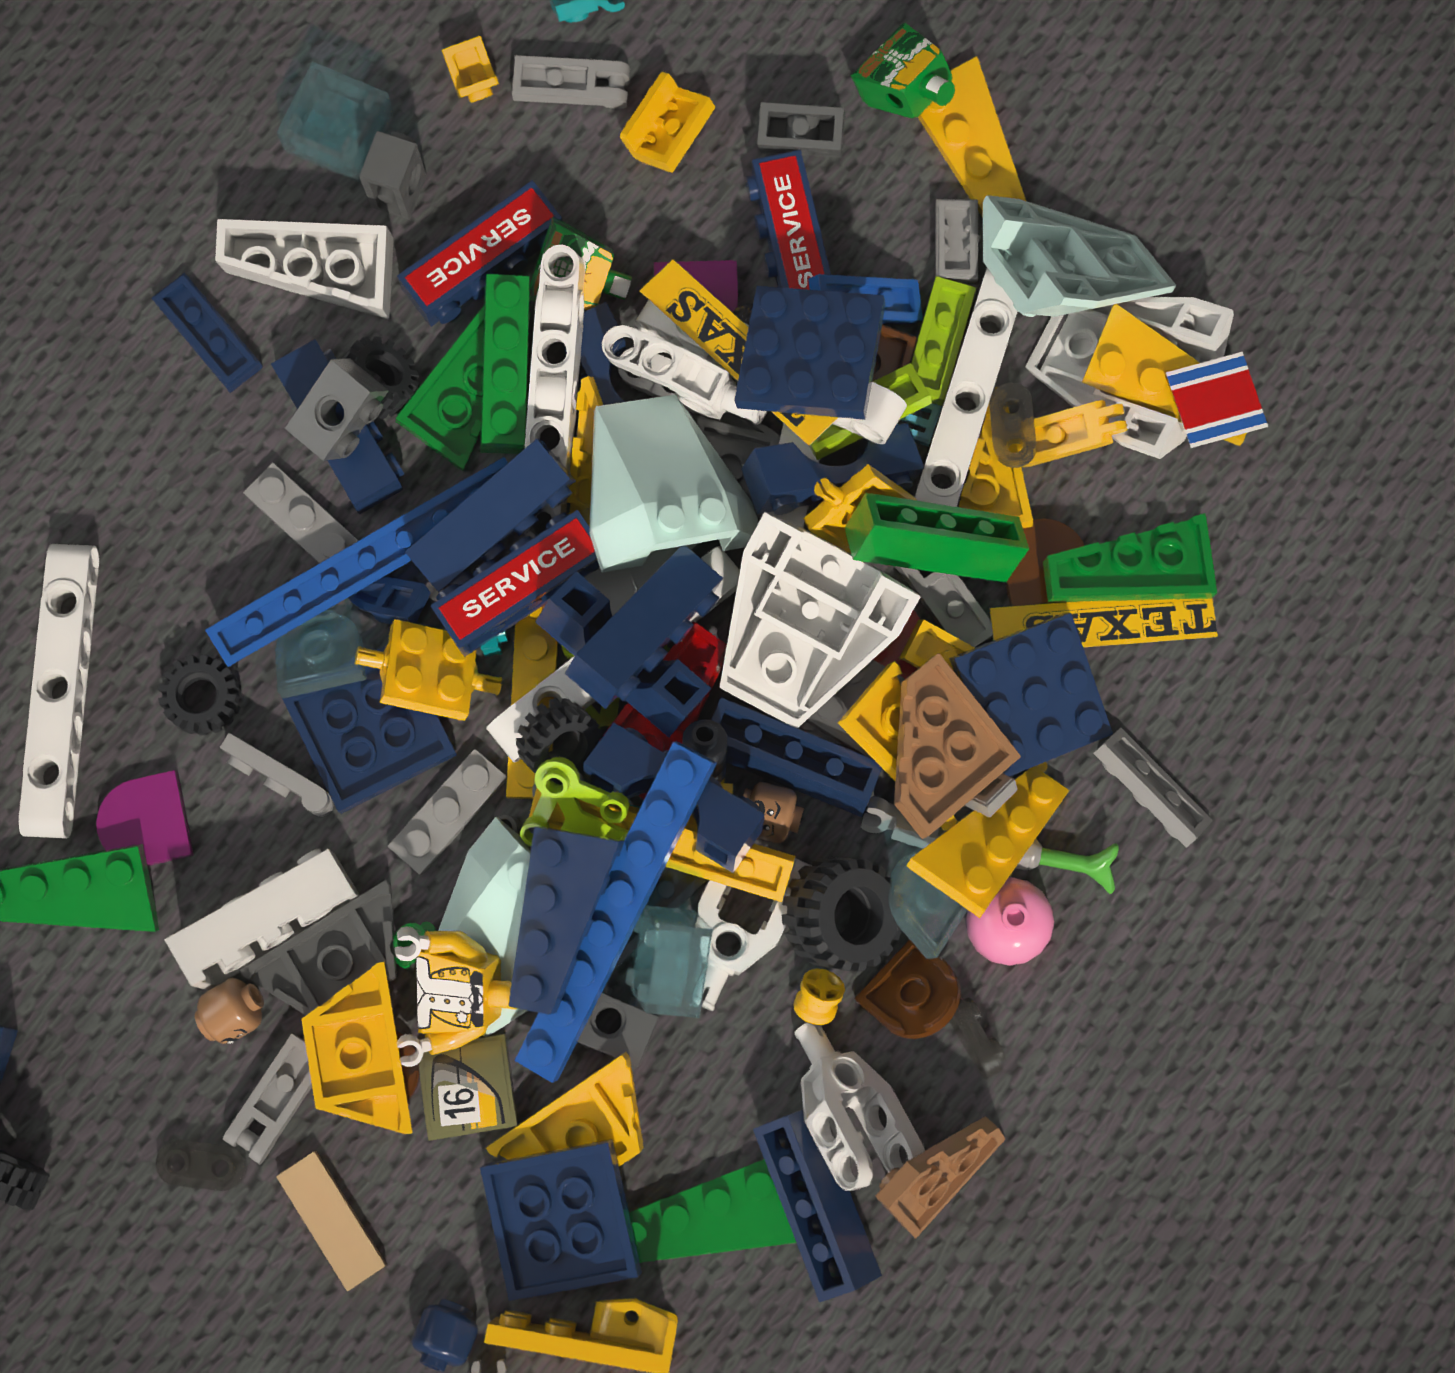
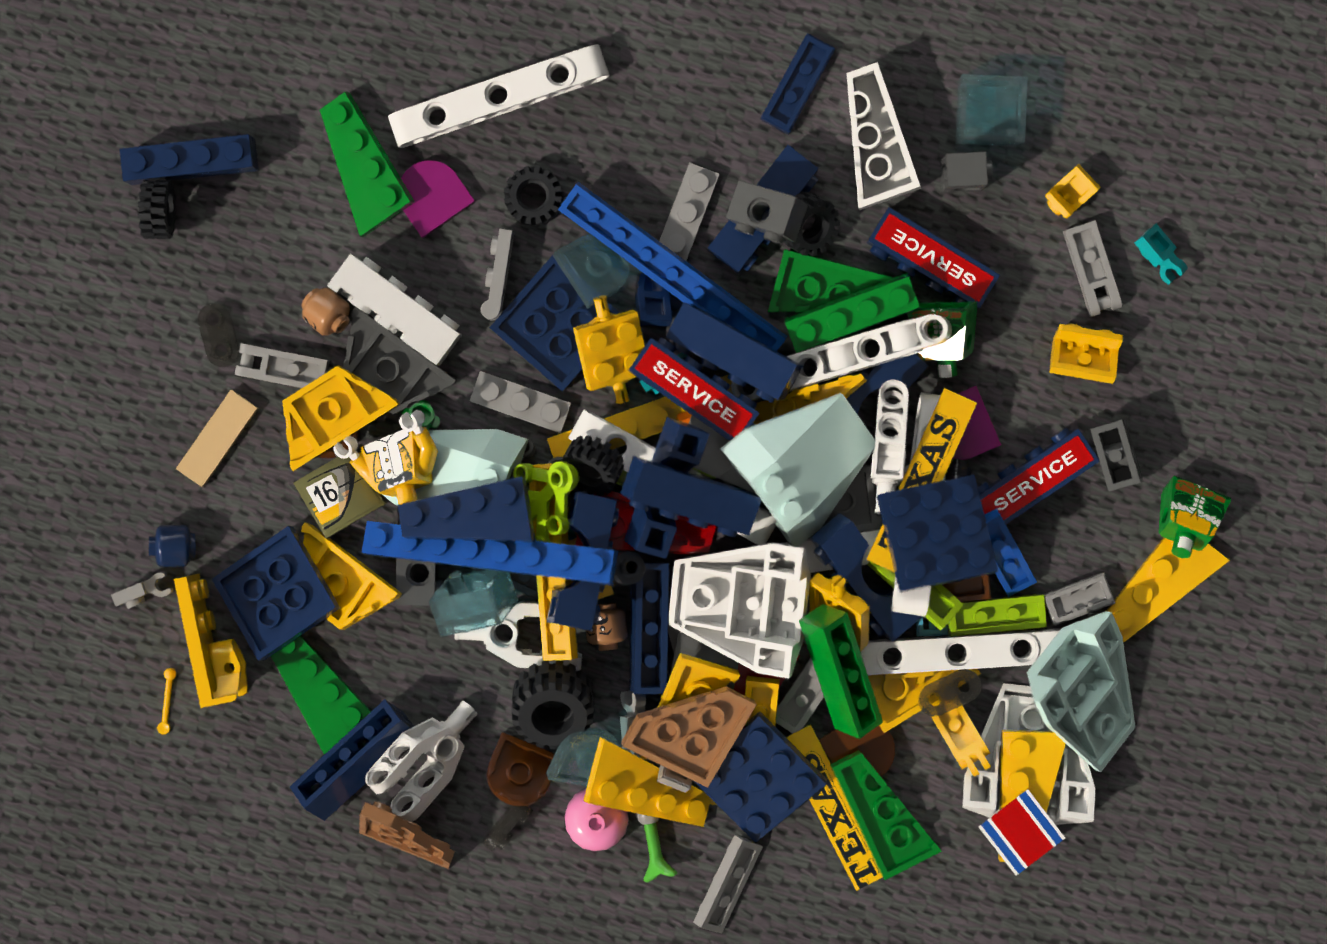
camera: 75 degrees right, 10 degrees up
(819, 996) = (498, 714): yellow wheel -> none

